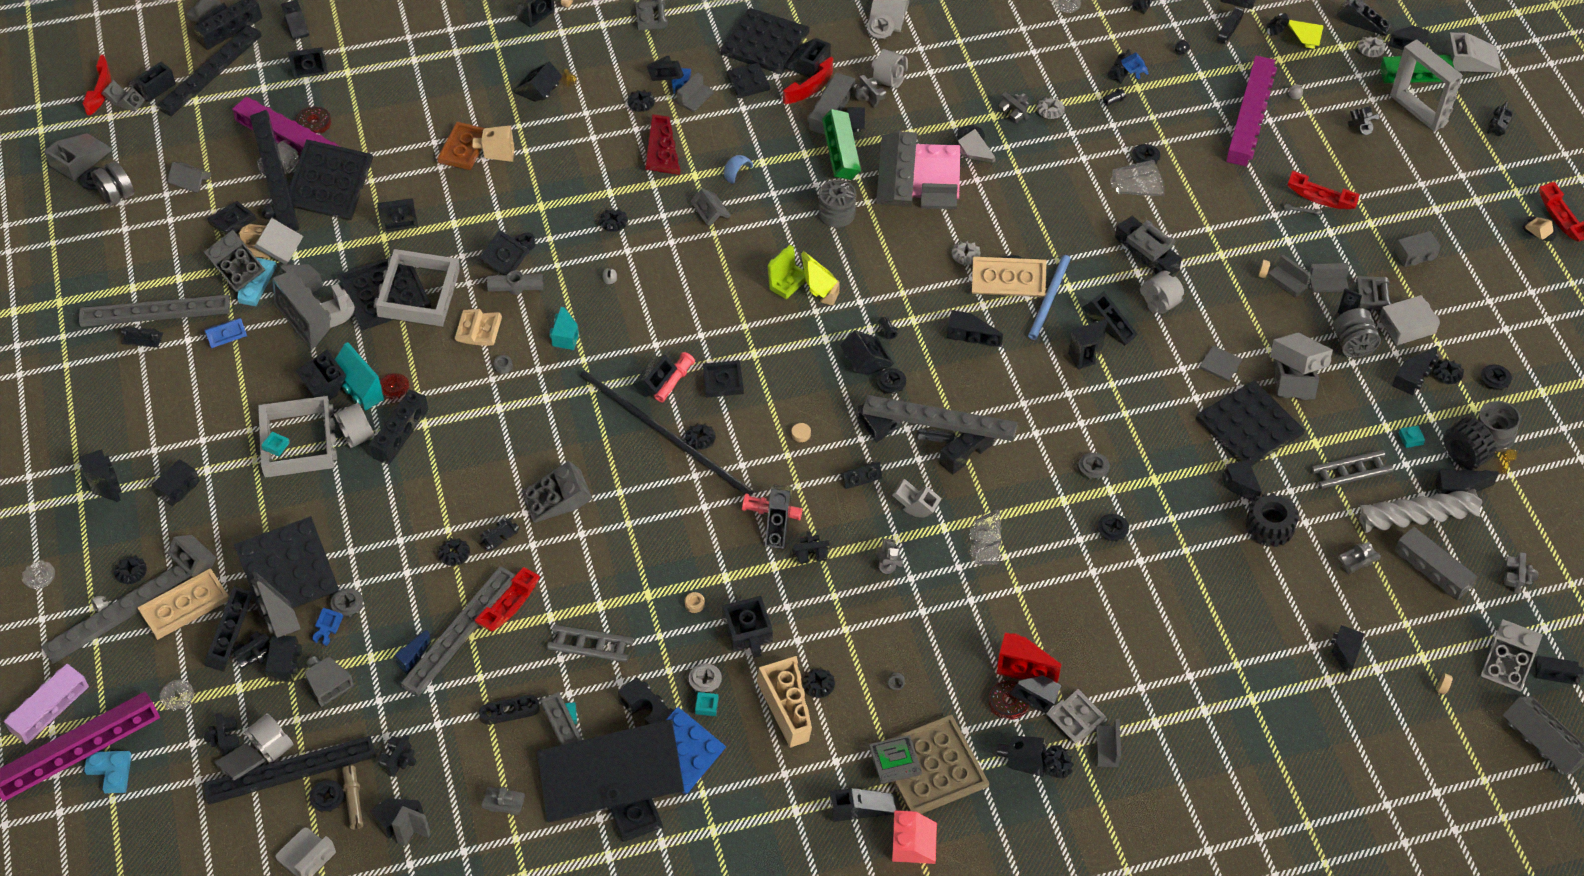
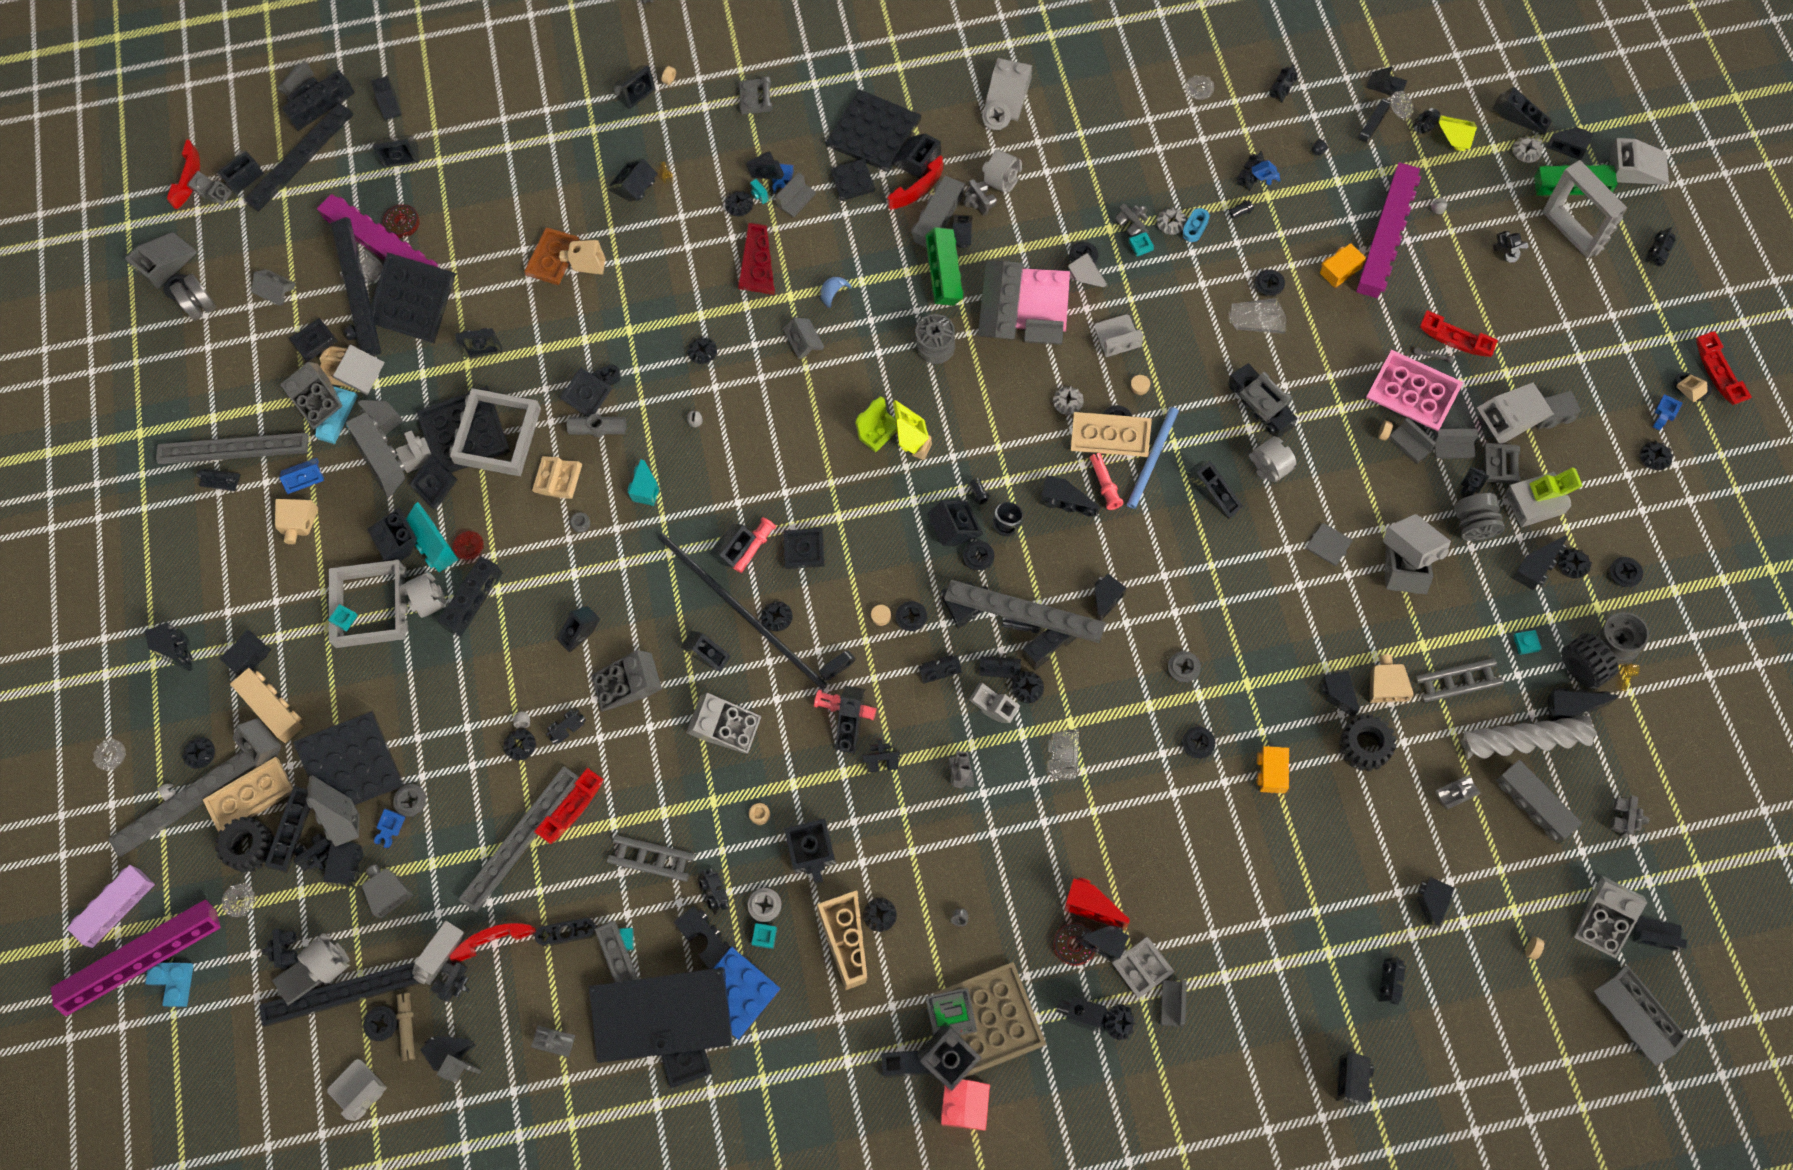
camera: 10 degrees right, 15 degrees up
(176, 632) = (234, 834): none -> black tyre
(197, 522) = (267, 705): none -> tan brick
(220, 366) = (294, 518): none -> tan torso
(357, 331) = (433, 482): none -> black tile
(385, 724) = (437, 953): none -> light grey brick
(411, 653) = (471, 863): dark blue slope -> none
(455, 530) = (521, 720): none -> light grey hinge
(462, 707) = (467, 948): none -> red slope
(506, 450) = (577, 628): none -> black slope
(633, 465) = (705, 650): none -> black slope
(648, 662) = (715, 899): none -> black hinge
(654, 525) = (723, 723): none -> light grey slope
(660, 90) = (759, 191): none -> teal plate
(762, 474) = (837, 665): none -> black beam
(835, 427) = (917, 610): none -> black gear
(896, 788) = (948, 1056): none -> black slope
(916, 345) = (1007, 519): none -> black helmet
(919, 472) = (999, 667): none -> black hinge
(942, 492) = (1022, 694): none -> black gear
(1009, 199) = (1118, 335): none -> light grey bracket
(1010, 322) = (1108, 489): none -> coral pin
(1017, 406) = (1107, 594): none -> black slope
(1024, 126) = (1141, 244): none -> teal plate
(1032, 239) = (1140, 384): none -> tan tile
(1073, 110) = (1195, 226): none -> dark azure plate
(1087, 343) = (1187, 521): black slope -> none
(1186, 546) = (1273, 769): none -> light orange brick
(1212, 139) = (1342, 265): none -> light orange brick
(1250, 424) = (1354, 621): black plate -> none
(1254, 12) = (1400, 100): none -> clear gear
(1286, 797) = (1354, 1079): none -> black slope
(1287, 471) = (1389, 682): none -> tan torso
(1288, 233) = (1414, 390): none -> bright pink slope
(1314, 709) = (1393, 971): none -> black hinge
(1379, 249) = (1514, 412): none -> light grey slope
(1428, 304) = (1556, 486): none -> lime slope
(1518, 246) = (1666, 410): none -> blue plate
(1518, 289) = (1648, 452): none -> black gear

